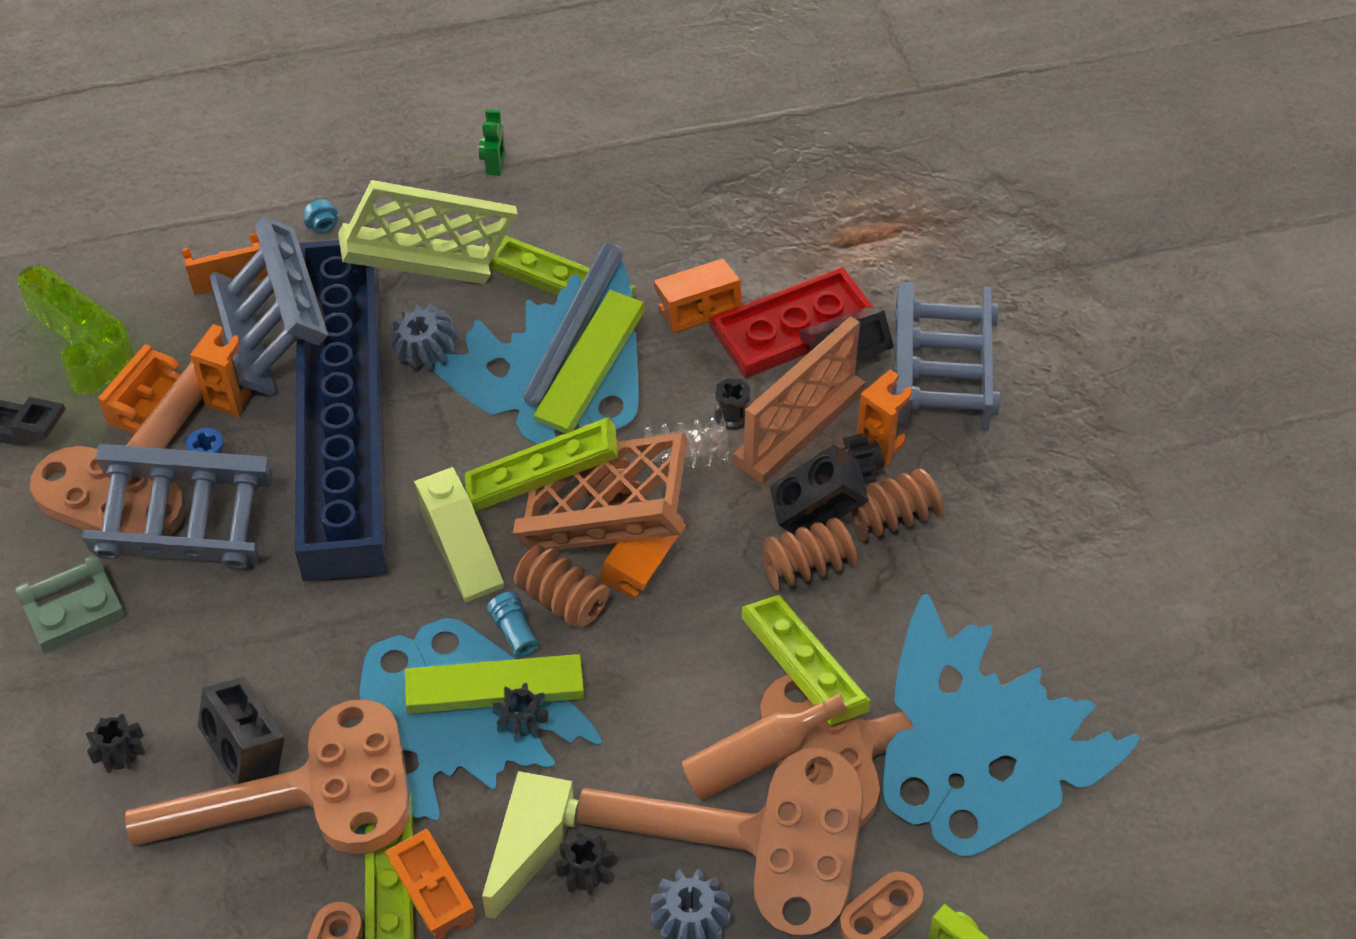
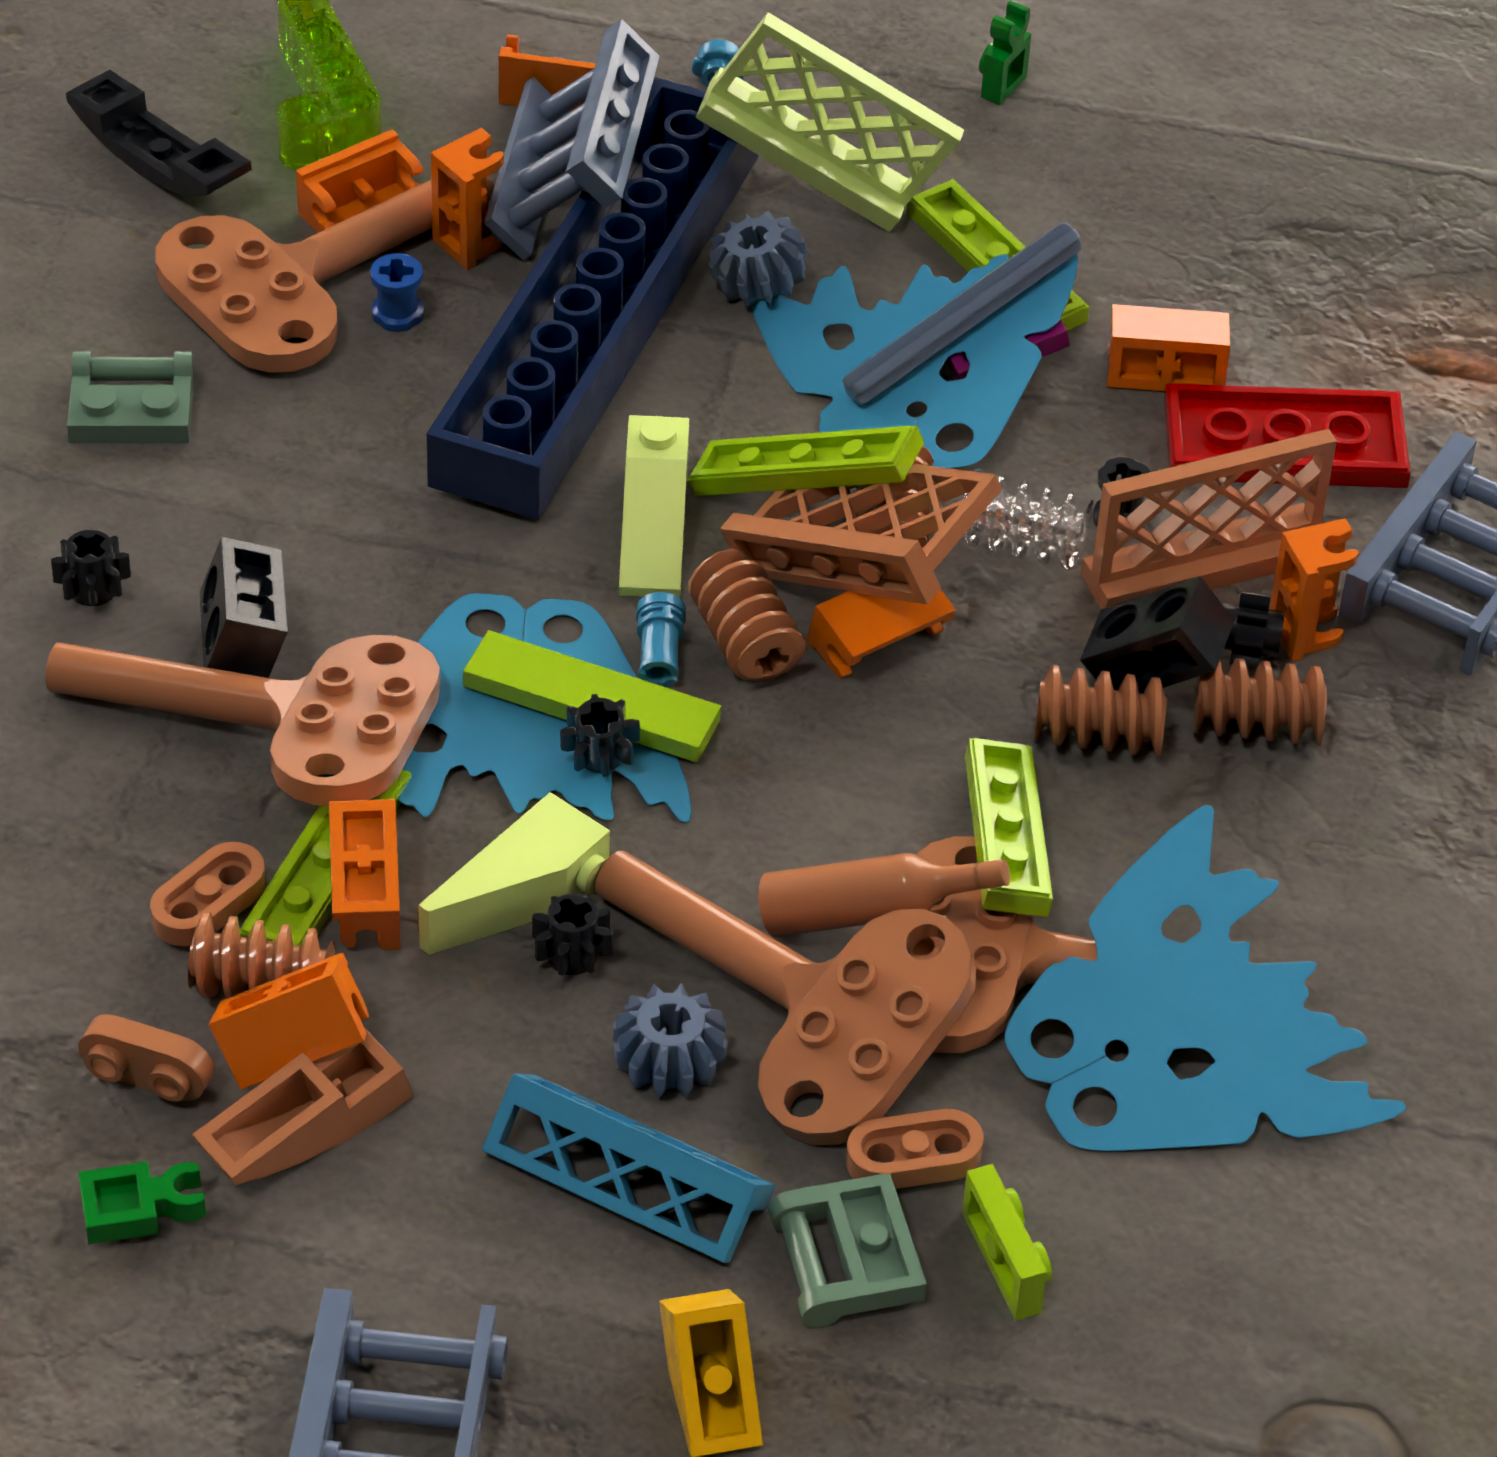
camera: 25 degrees right, 5 degrees down
(163, 468) = (324, 278): sand blue fence -> none
(589, 362) = (961, 364): lime tile -> none
(873, 332) = (1358, 481): black hinge -> none

